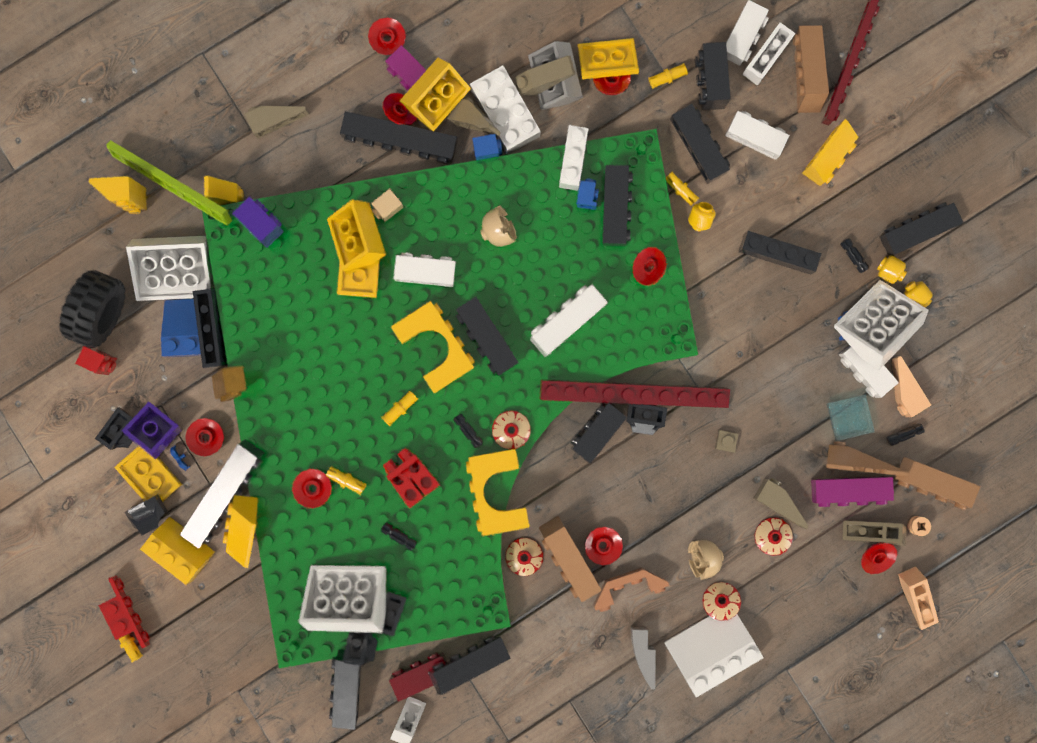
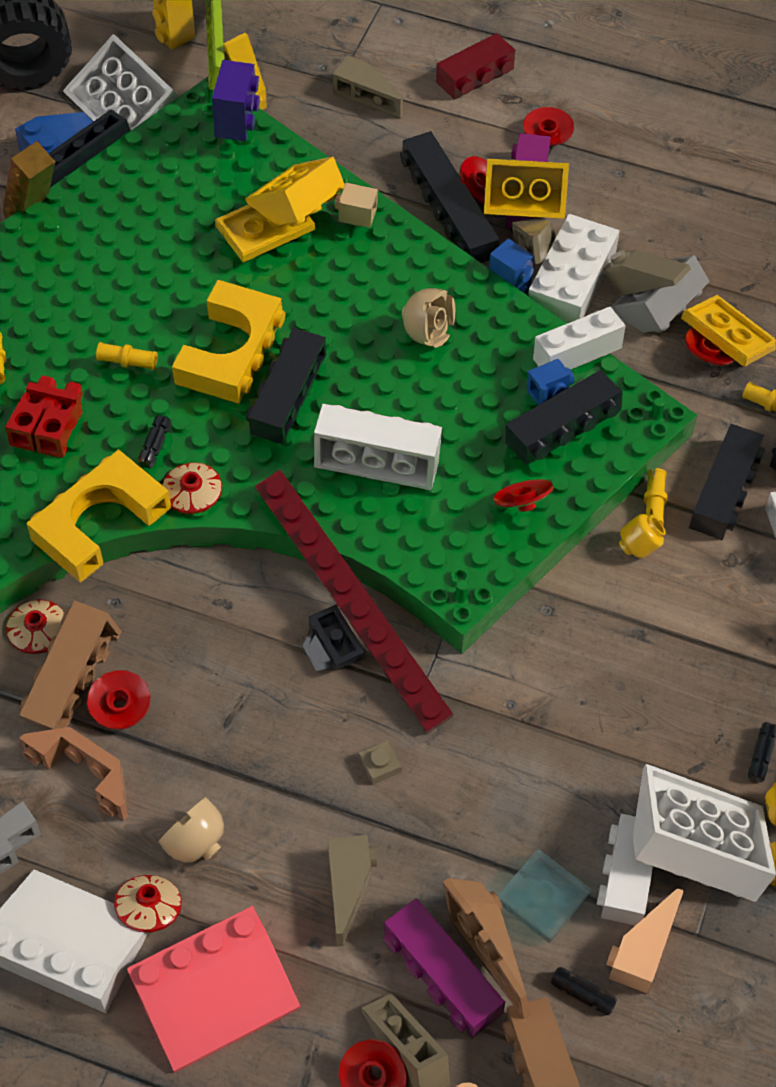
camera: 60 degrees right, 30 degrees down
(306, 40) = (475, 66): none -> dark red brick
(424, 270) = (314, 281): white brick -> none
(597, 432) = (265, 590): black brick -> none
(764, 534) = (299, 928): tan dish -> none
(779, 252) = (681, 654): black brick -> none
(786, 600) = (213, 988): none -> coral slope

